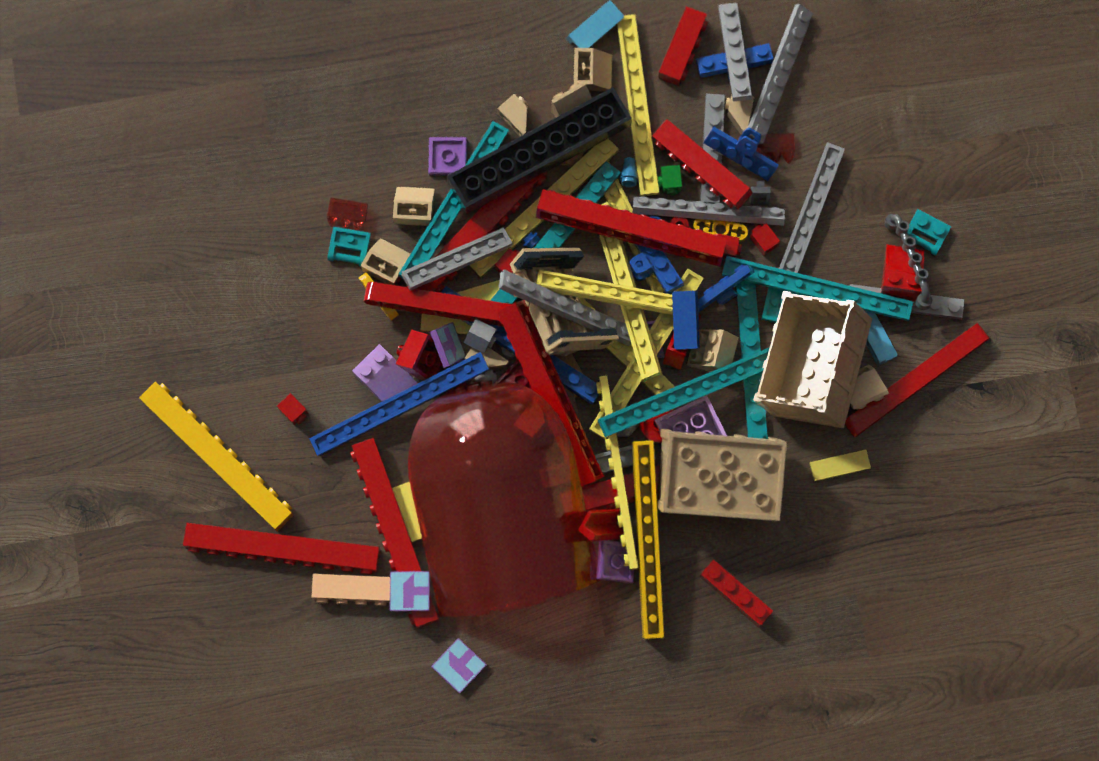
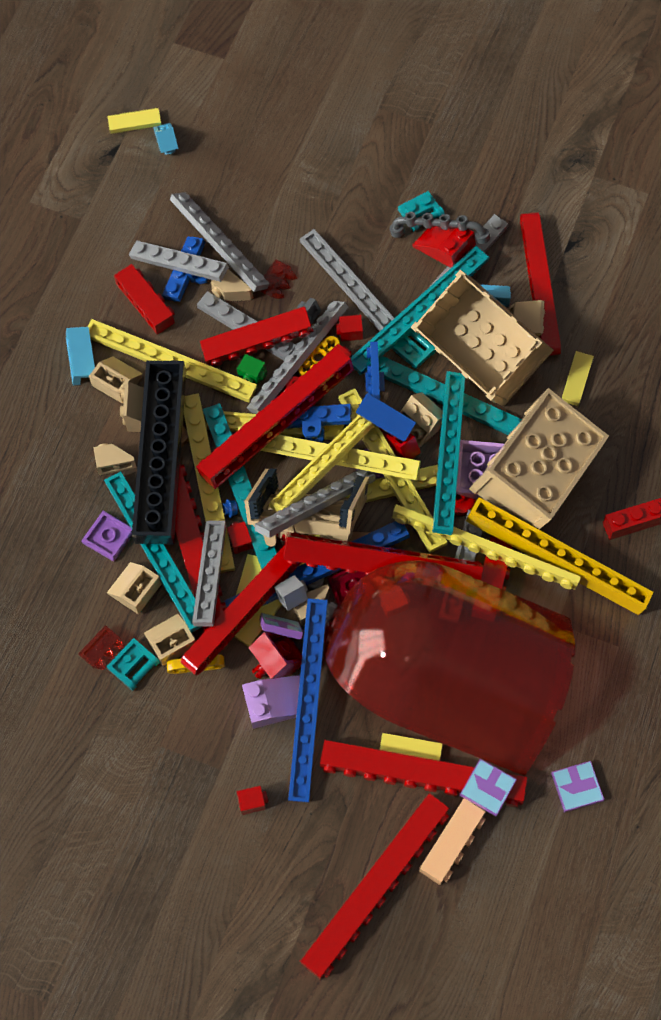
camera: 60 degrees left, 10 degrees down
(212, 452) = (250, 897): yellow brick -> none
(601, 525) = (528, 588): red panel -> none
(611, 562) = (559, 599): medium lavender tile -> none
(629, 173) = (227, 400): dark azure cone -> none
(742, 151) = (266, 300): blue plate -> none

